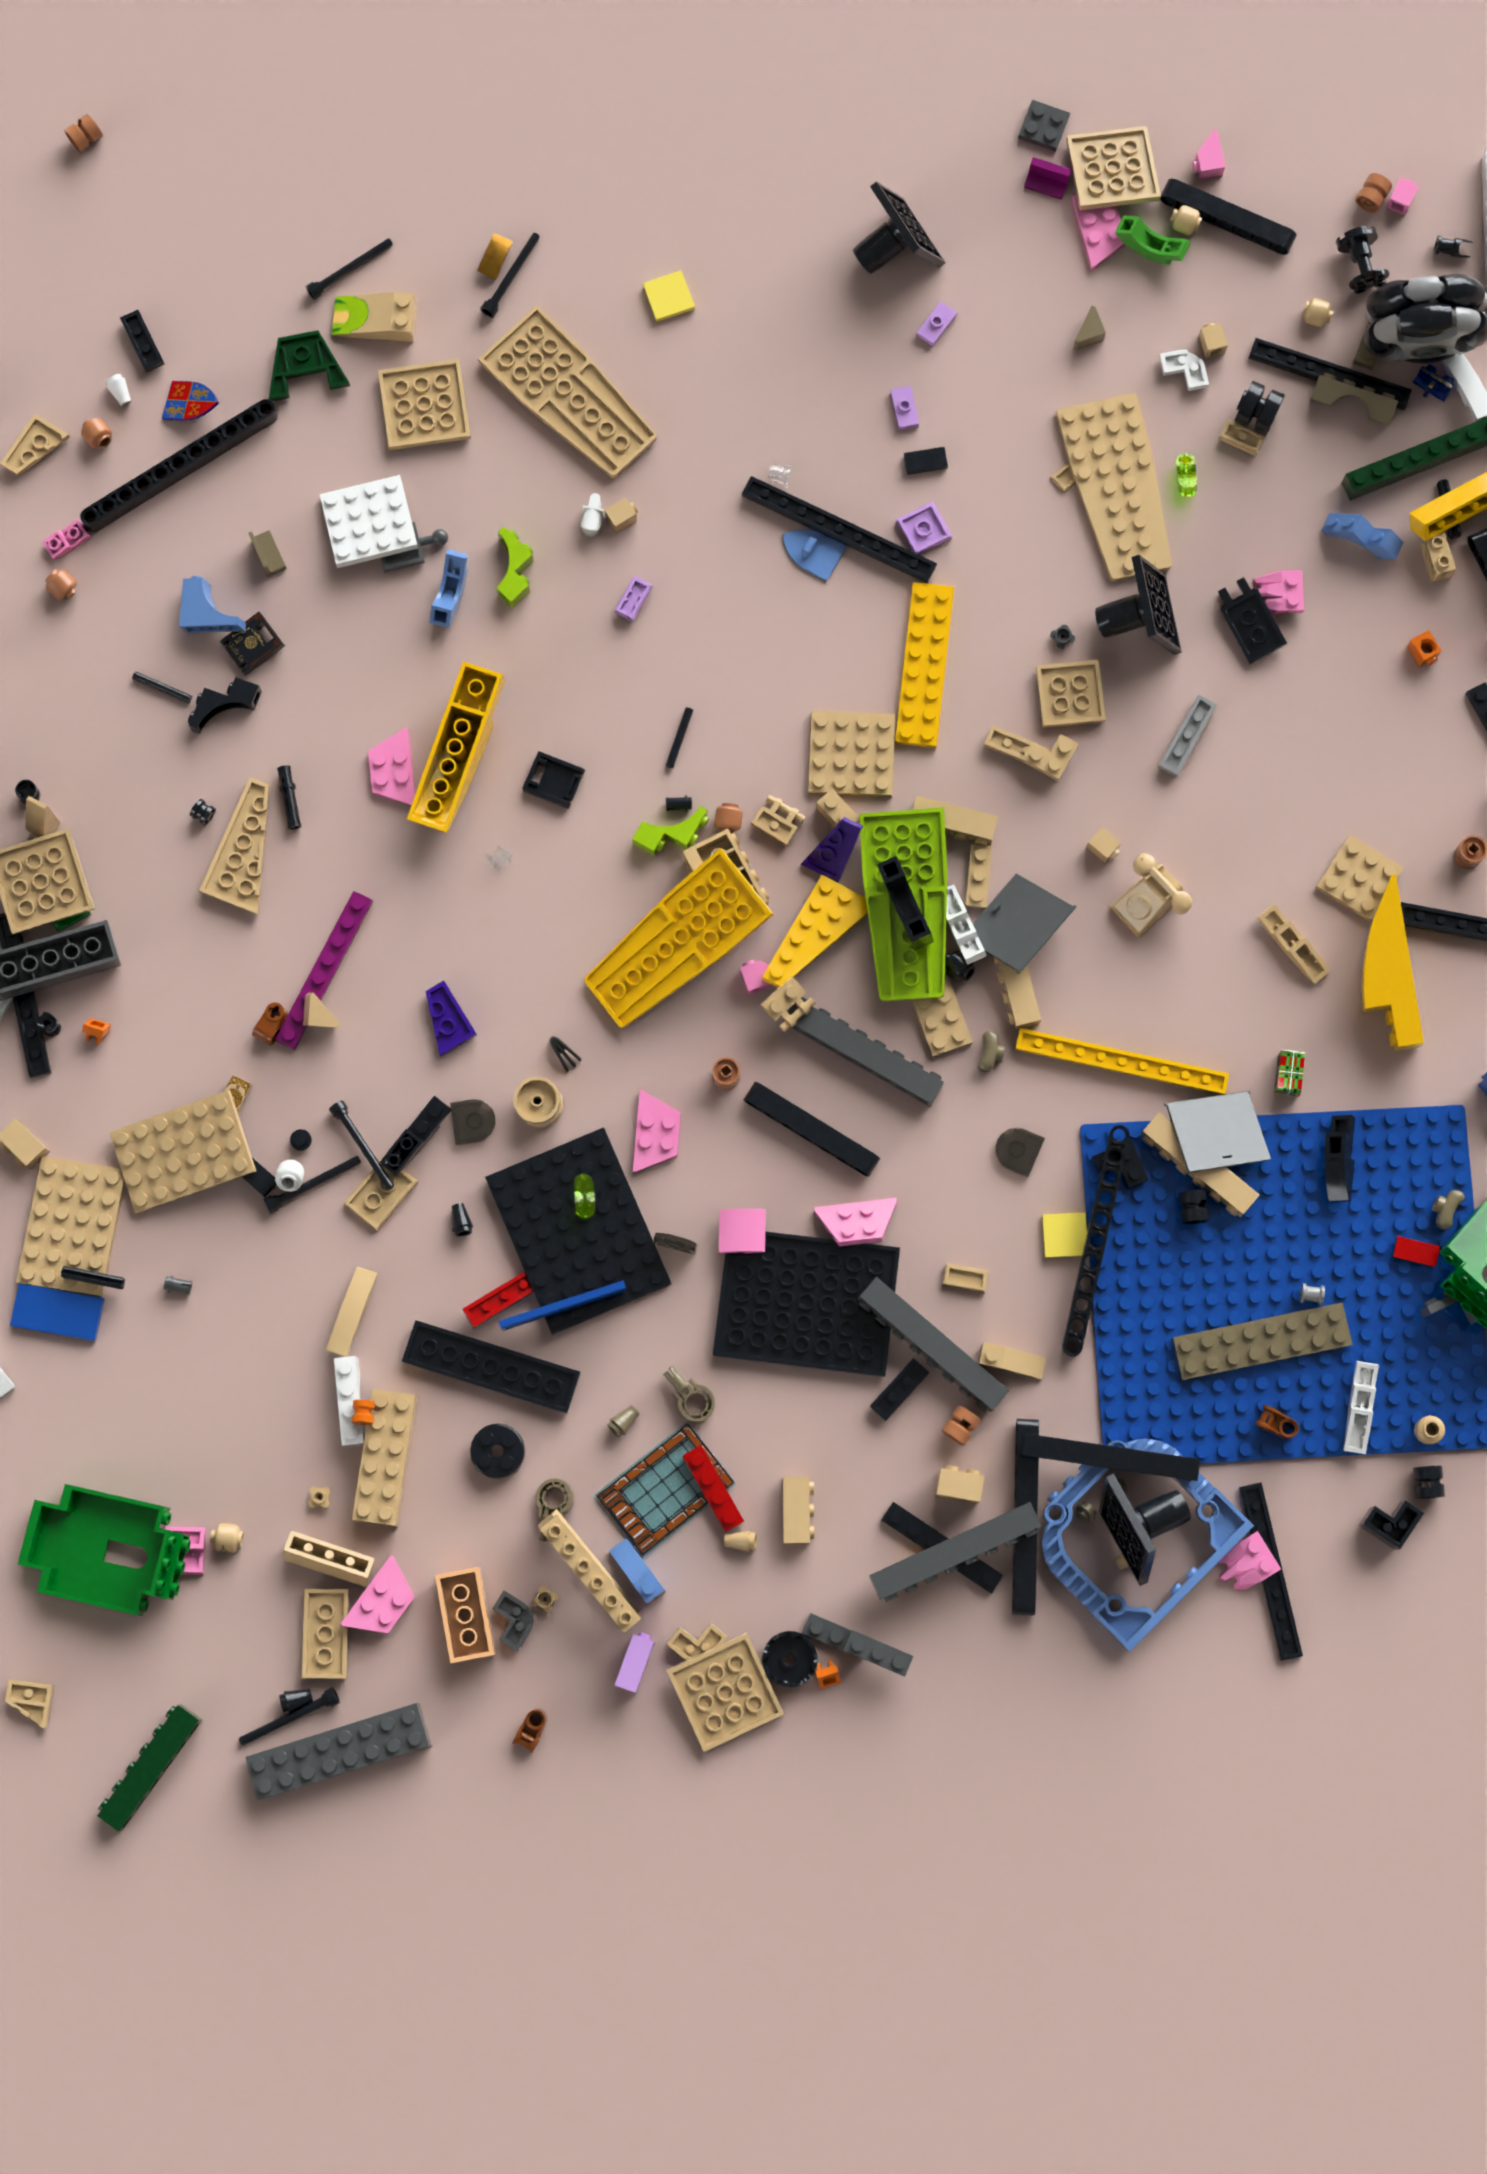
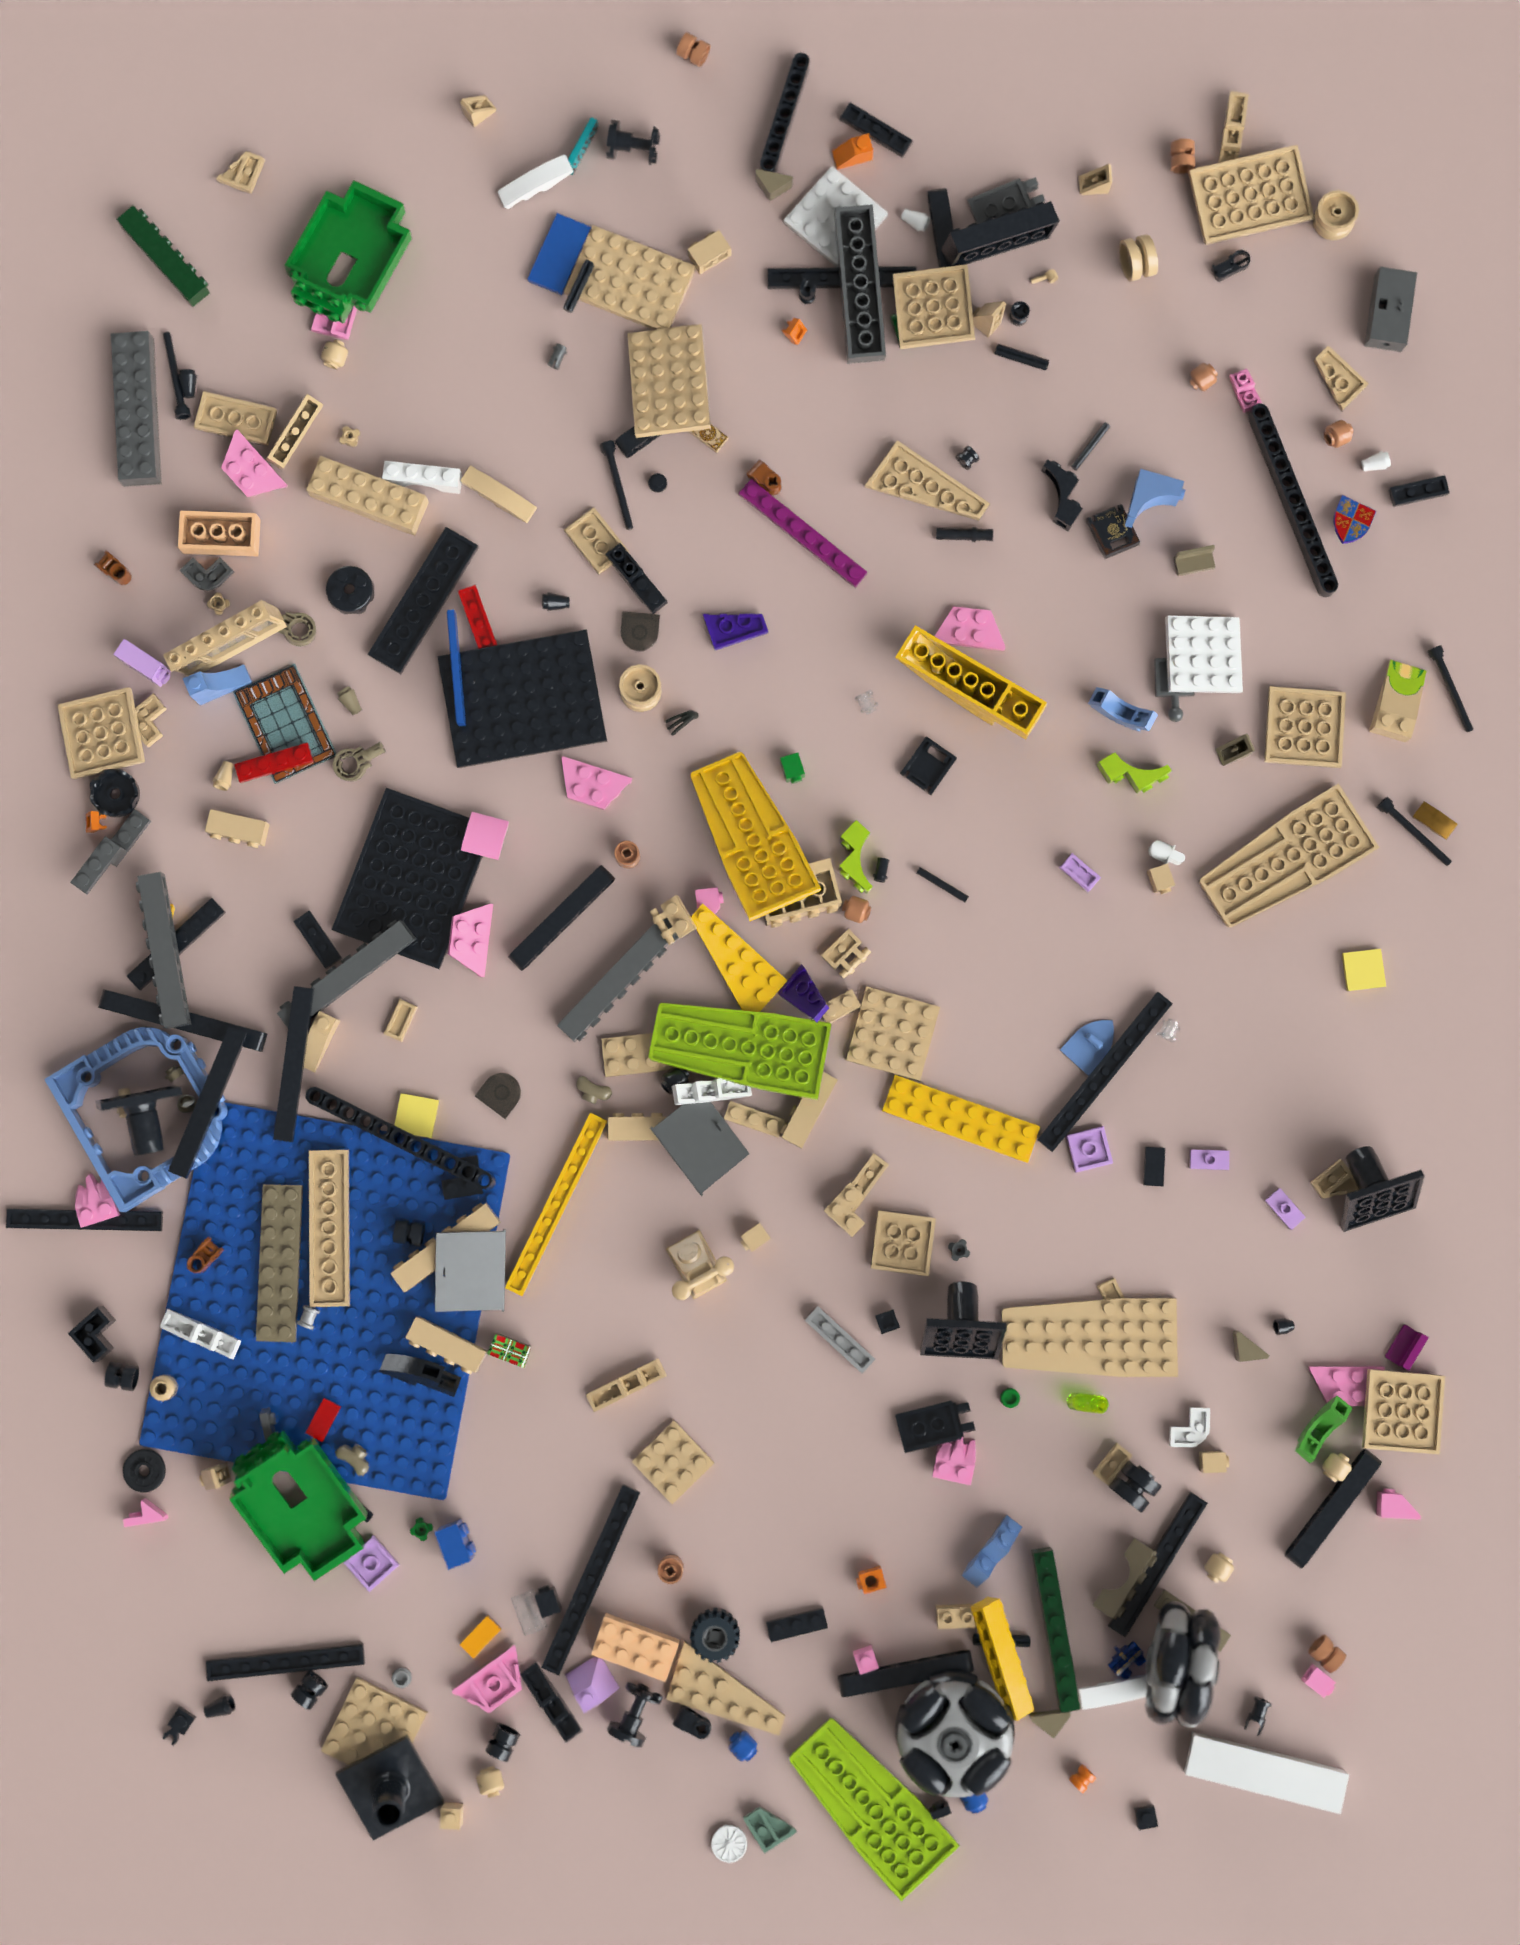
camera: 100 degrees right, 5 degrees up
(76, 780) = (1022, 357): none -> black axle
(289, 1175) = (626, 465): white head -> none
(302, 356) = (1373, 628): dark green wing -> none
(317, 1014) = (760, 517): tan slope -> none
(340, 1111) = (674, 521): black piece -> none
(363, 1412) = (405, 481): orange wheel -> none
(465, 468) = (1235, 750): none -> dark tan slope
(584, 1206) = (539, 706): clear neon green piece -> none
(589, 920) = (792, 768): none -> green brick
(675, 1243) = (488, 777): clear smoke tile -> none
(895, 280) = (1334, 1181): none -> tan wing
(905, 903) = (753, 1039): black arch -> none
(955, 1430) = (269, 978): nougat wheel -> none
(959, 1485) = (220, 969): tan brick -> none
(1043, 1377) = (293, 1064): none -> black tile
(1044, 125) = (1461, 1358): dark grey plate -> none
(1057, 301) = (1283, 1326): none -> black hose
(1156, 691) = (887, 1321): none -> black plate
(1201, 553) = (1009, 1397): none -> green tile
(1211, 1295) = (329, 1228): none -> tan plate
(1302, 1138) = (446, 1344): none -> tan brick
(1357, 243) = (1268, 1623): black piece -> none
(1388, 973) = (574, 1461): yellow slope -> none

